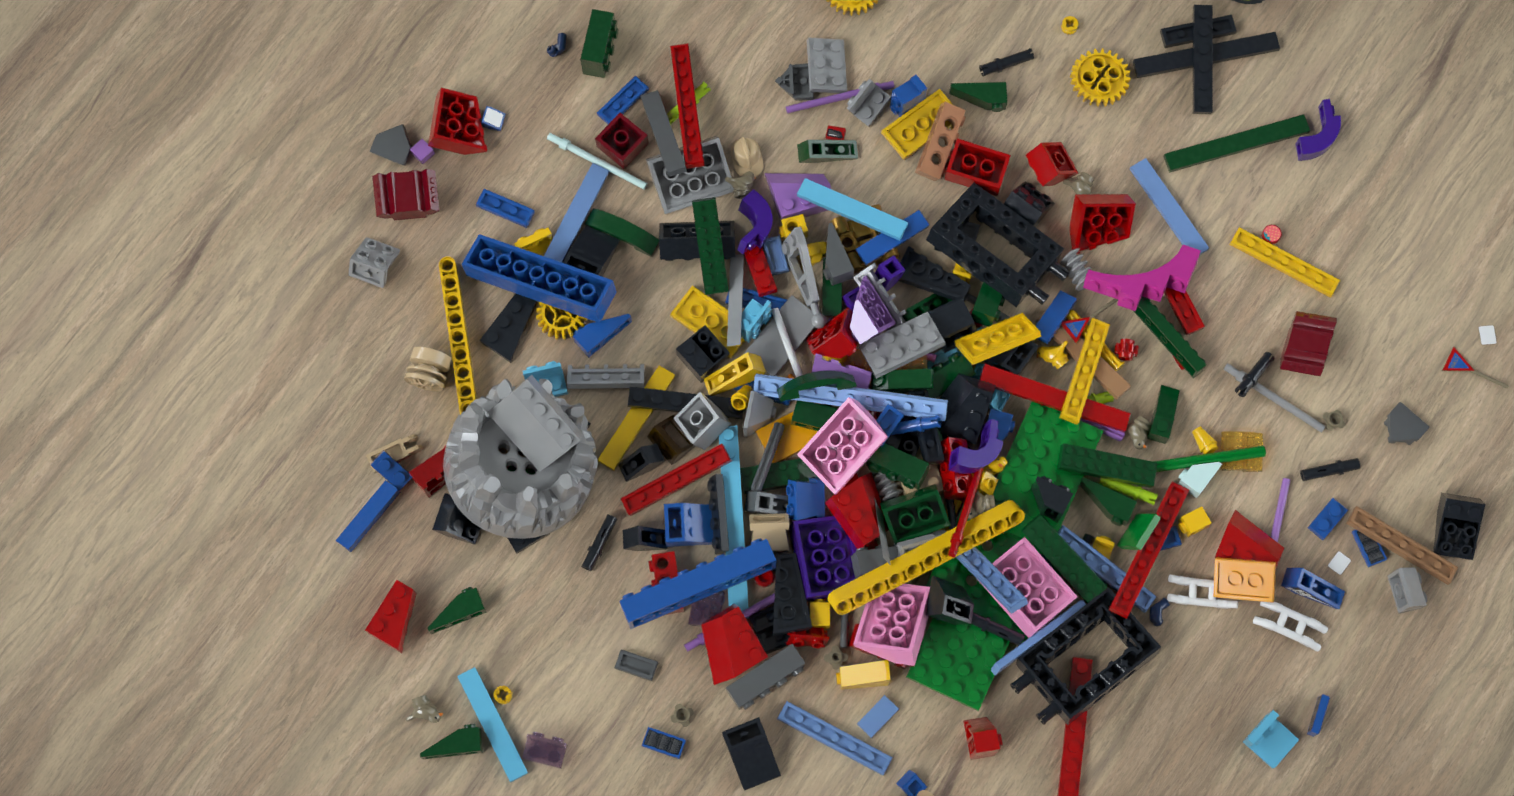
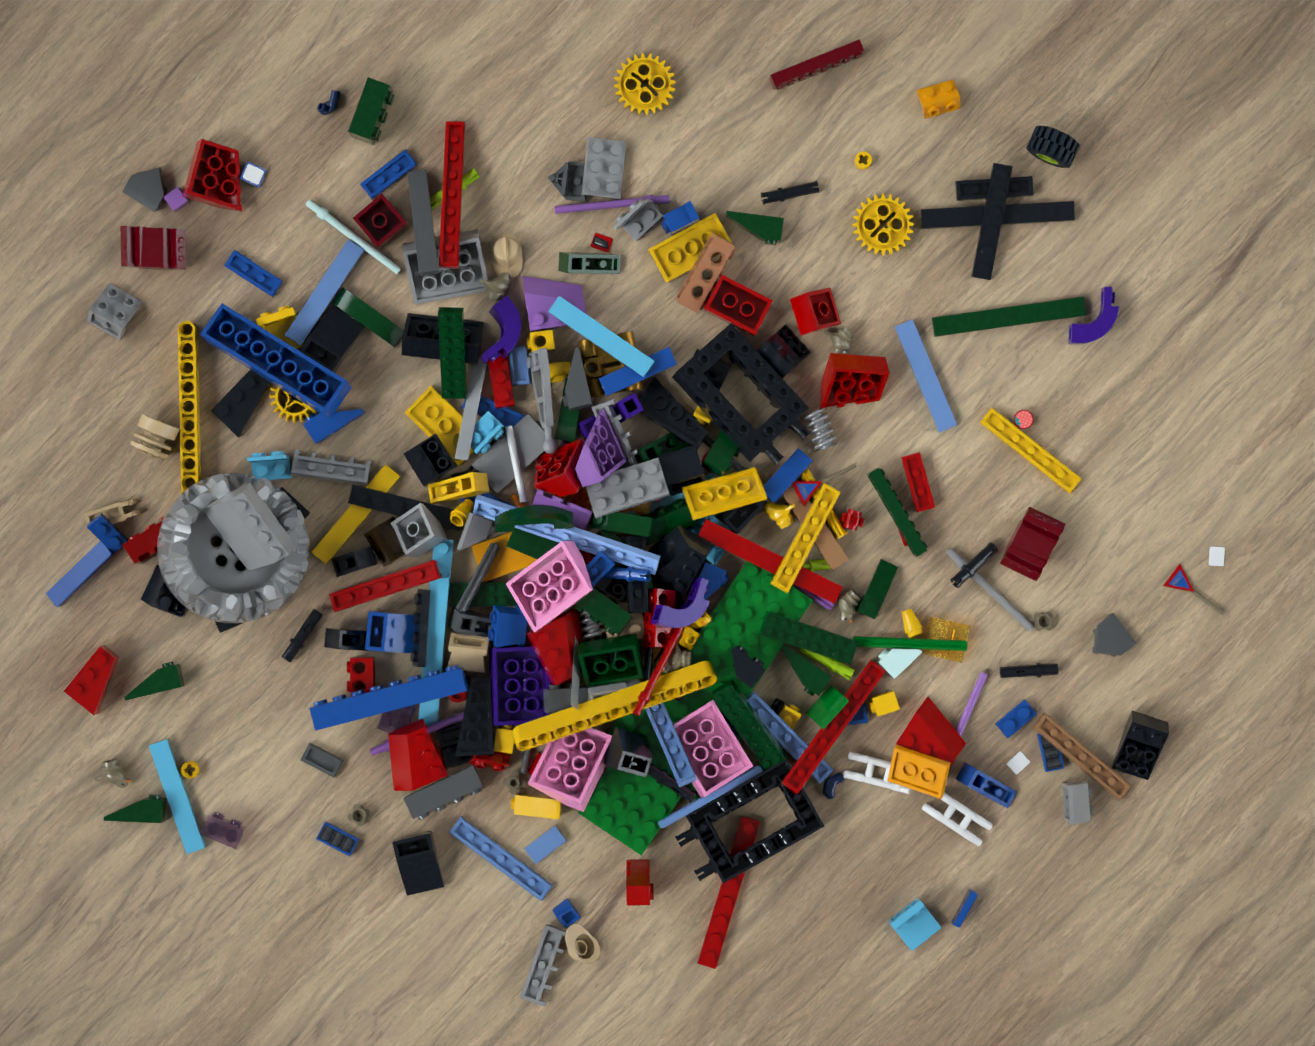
camera: 10 degrees right, 15 degrees up
(1151, 284) = (887, 461): dark pink arch -> none

